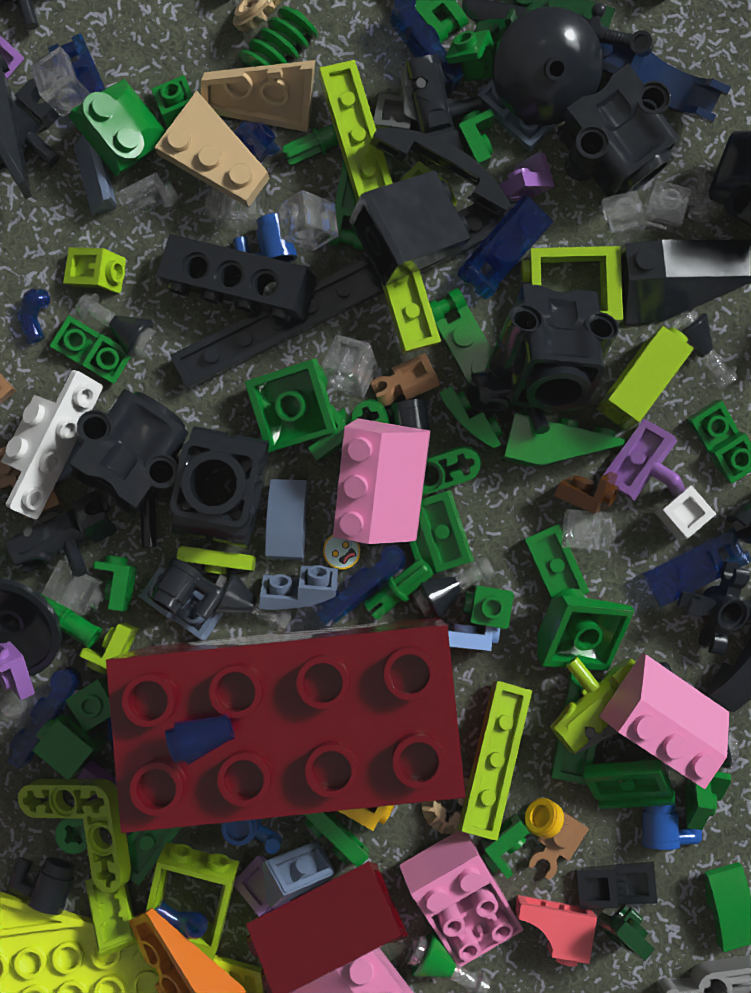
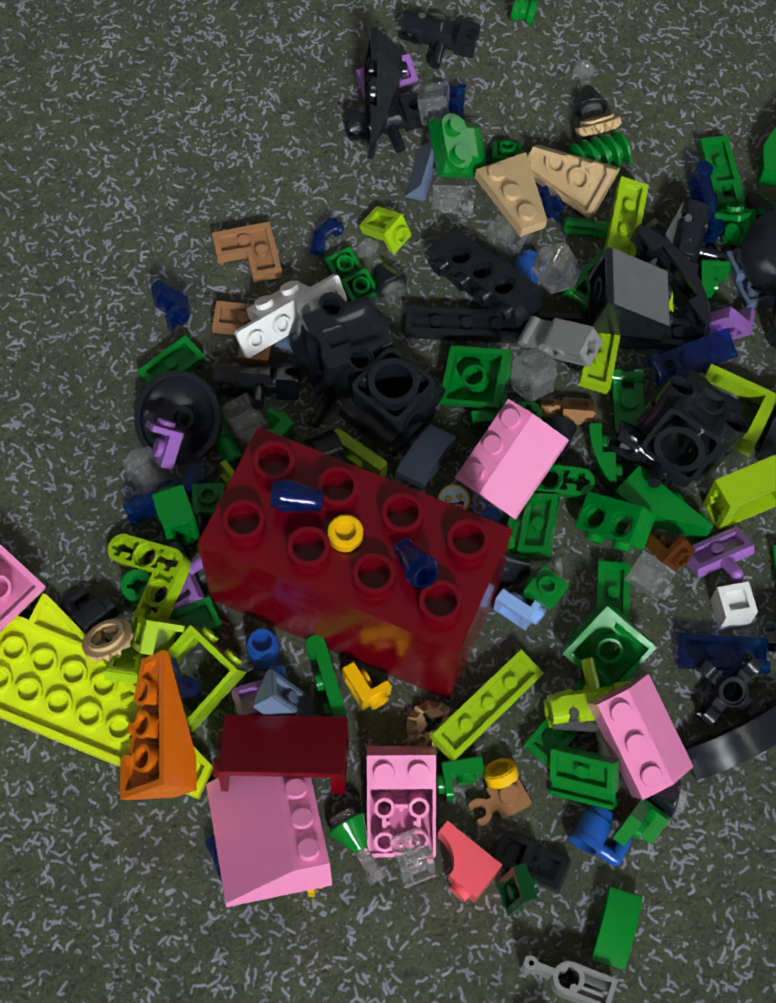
camera: 25 degrees right, 20 degrees down
(70, 921) = (114, 629): none -> tan gear
(126, 886) = (155, 634): none -> lime panel
(273, 736) = (345, 533): none -> yellow tile
(359, 313) = (562, 340): none -> light grey piece
(371, 738) = (417, 565): none -> clear blue cone
(503, 952) = (413, 857): none -> clear bracket
(521, 485) = (616, 518): none -> green brick

